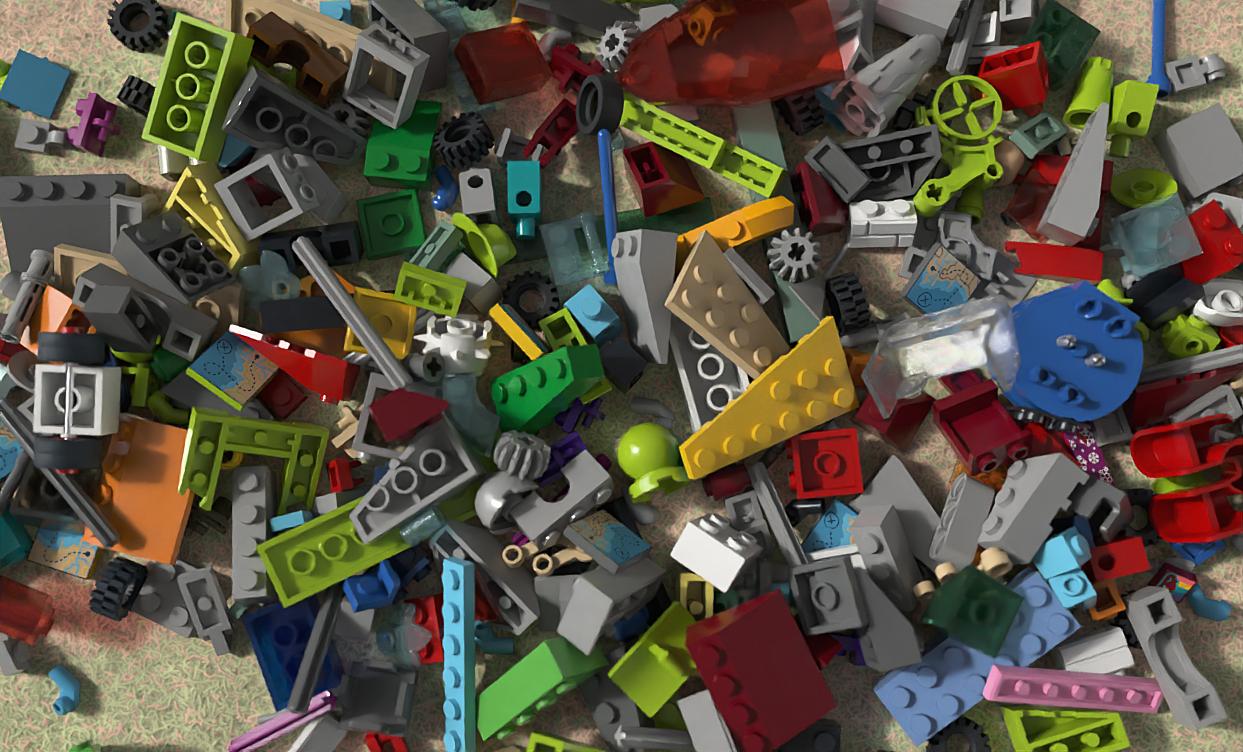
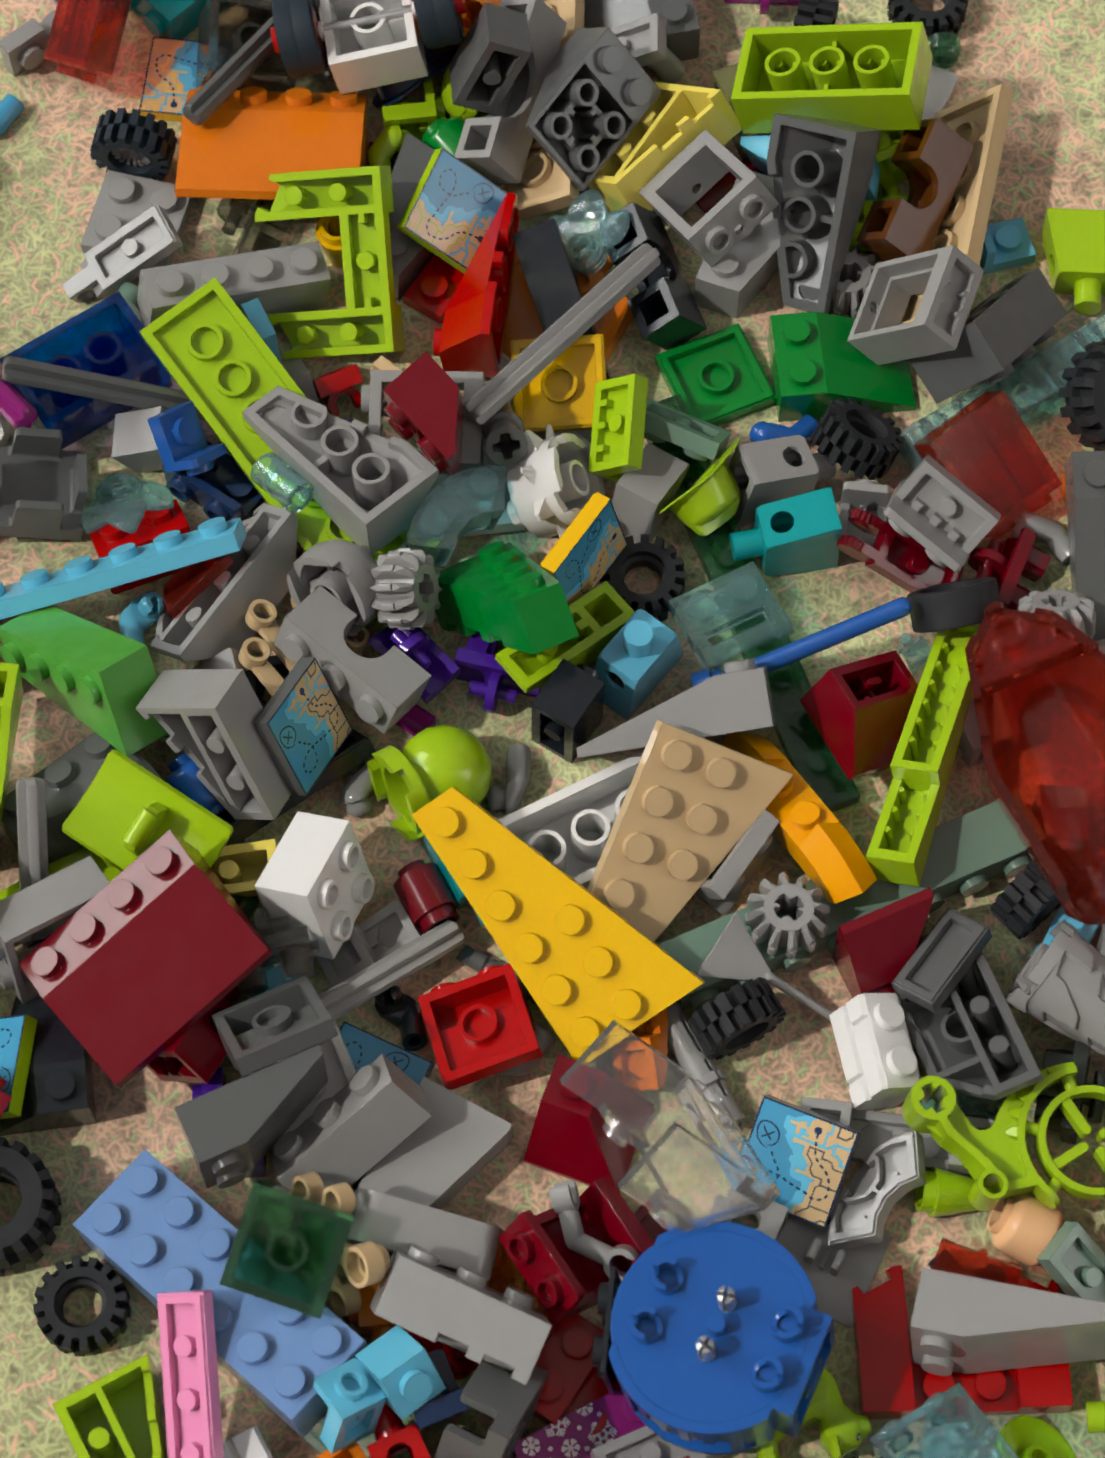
camera: 80 degrees right, 15 degrees down
(536, 99) = (940, 514): none -> light grey bracket
(956, 431) = (566, 1204): none -> light grey arm

